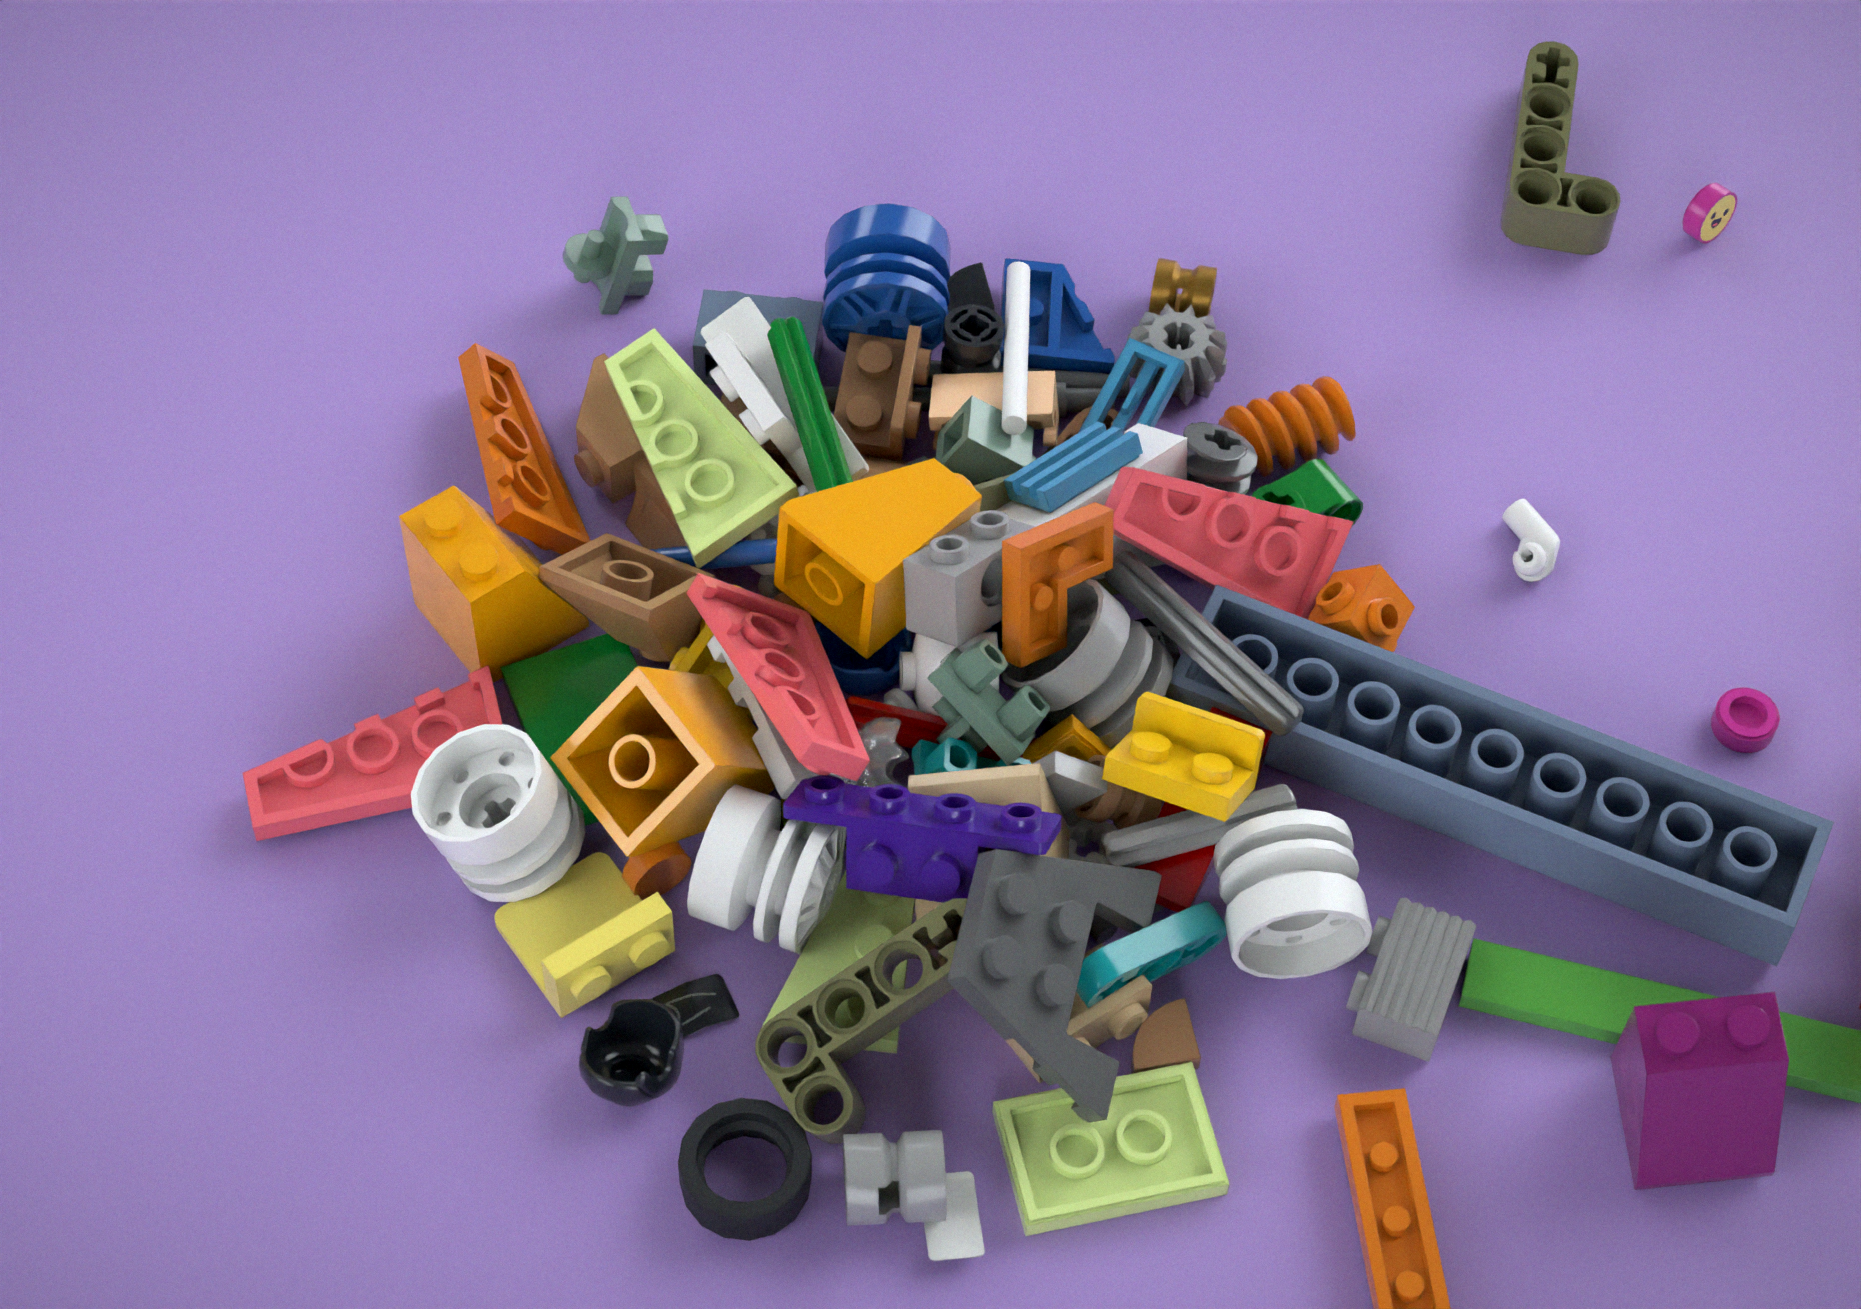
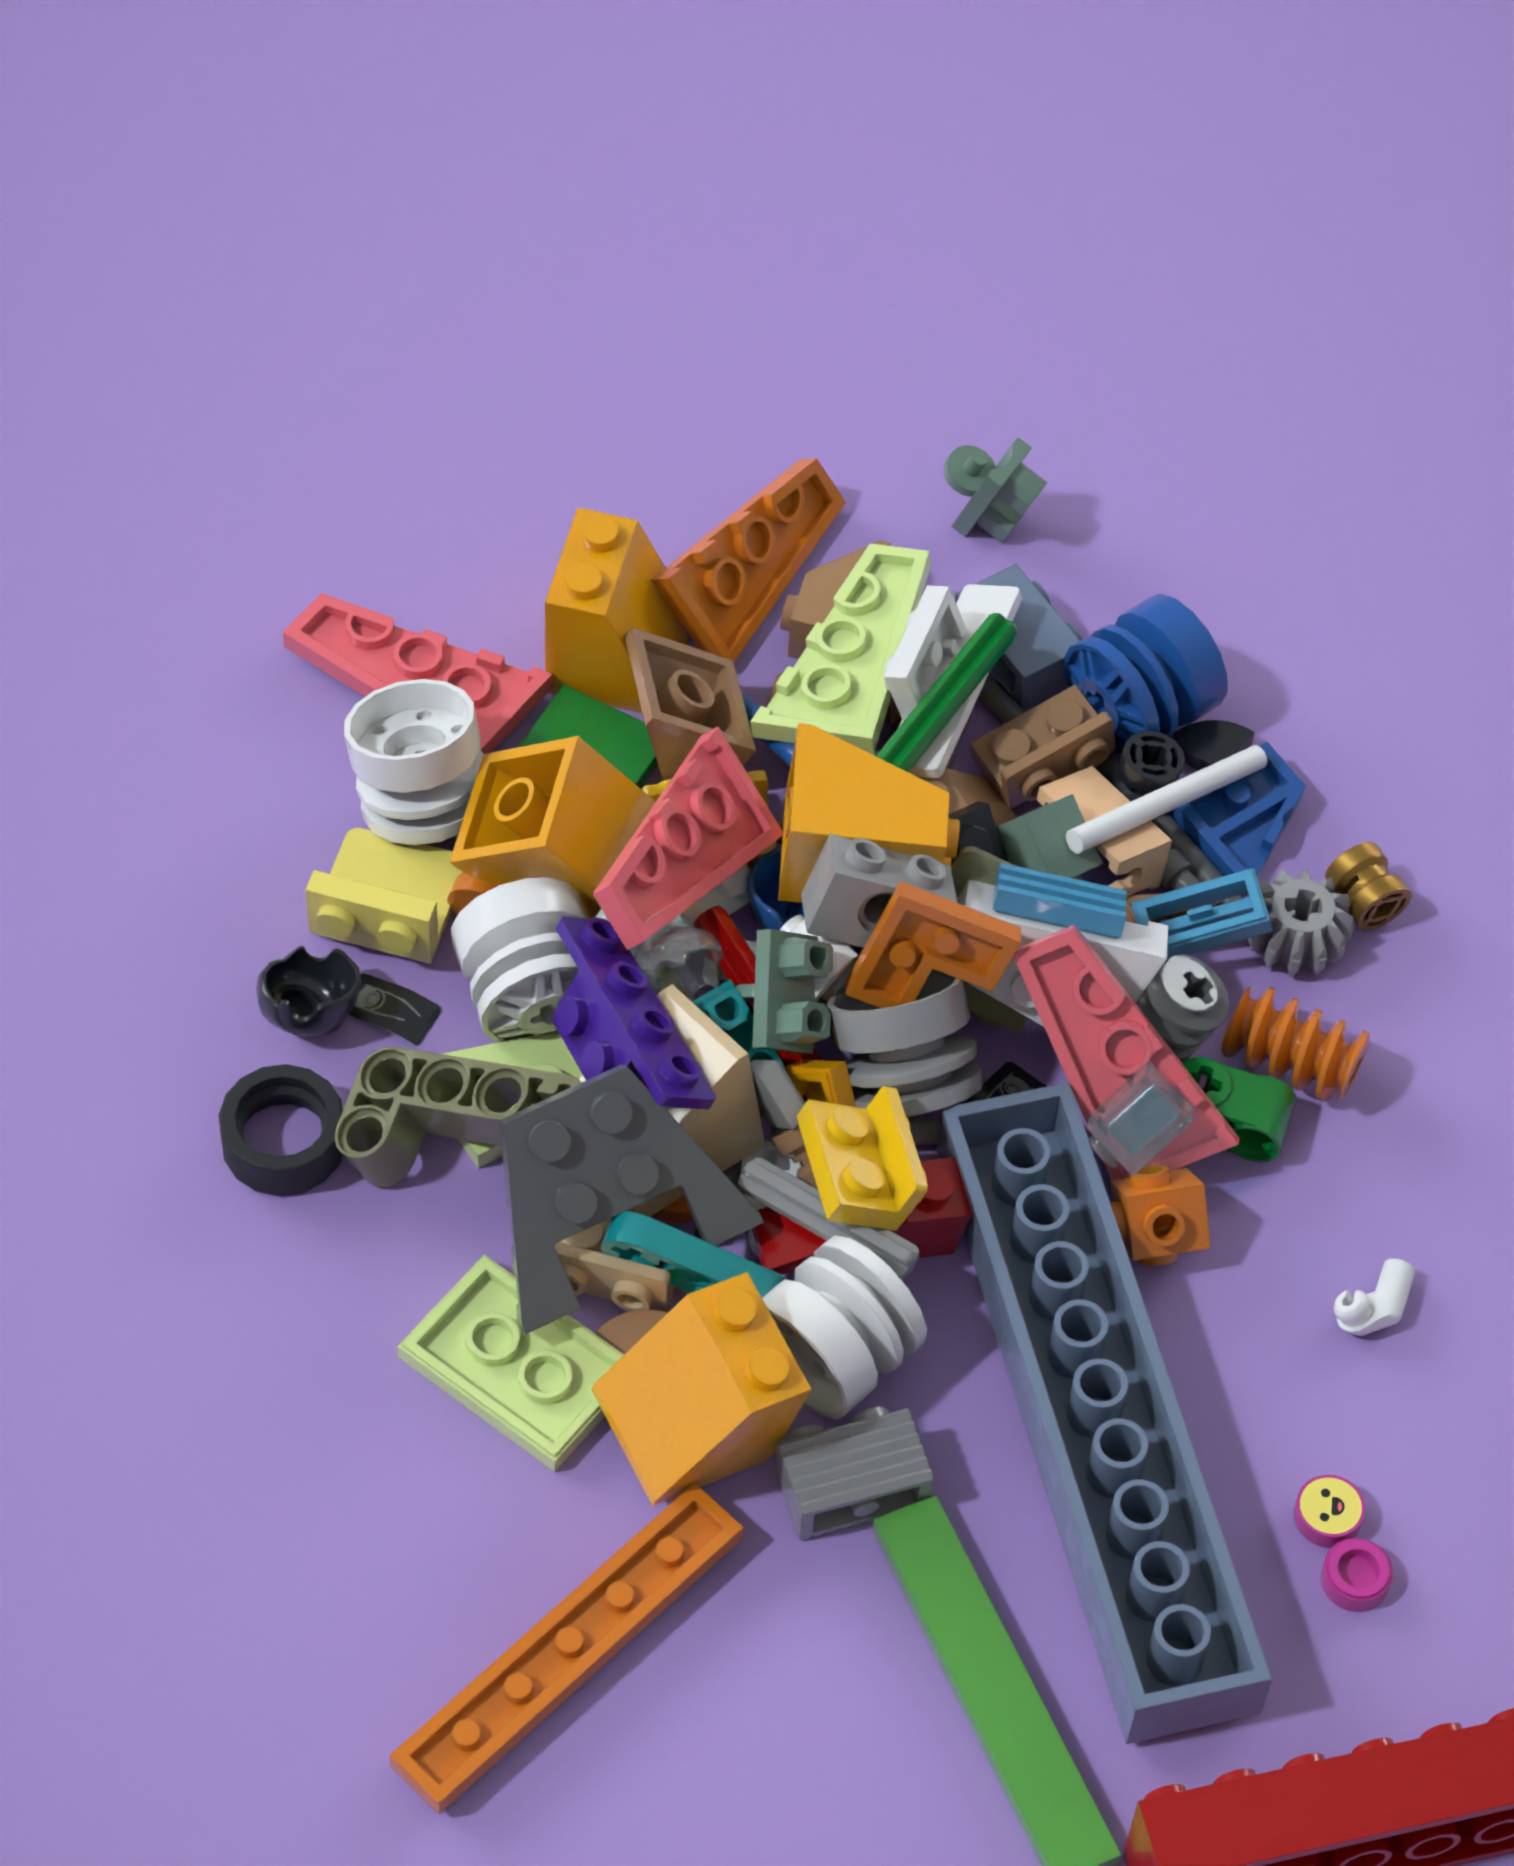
camera: 50 degrees right, 0 degrees up
(894, 1177) = (355, 1229): light grey wheel -> none
(961, 1232) = (369, 1295): white sticker -> none
(1204, 644) = (994, 1105): dark grey axle -> none
(1286, 1021) = (703, 1391): none -> light orange slope
(1293, 563) = (1138, 1120): none -> clear light blue brick
(1680, 698) = (1329, 1510): none -> tile
(1702, 1089) = (915, 1733): magenta slope -> none

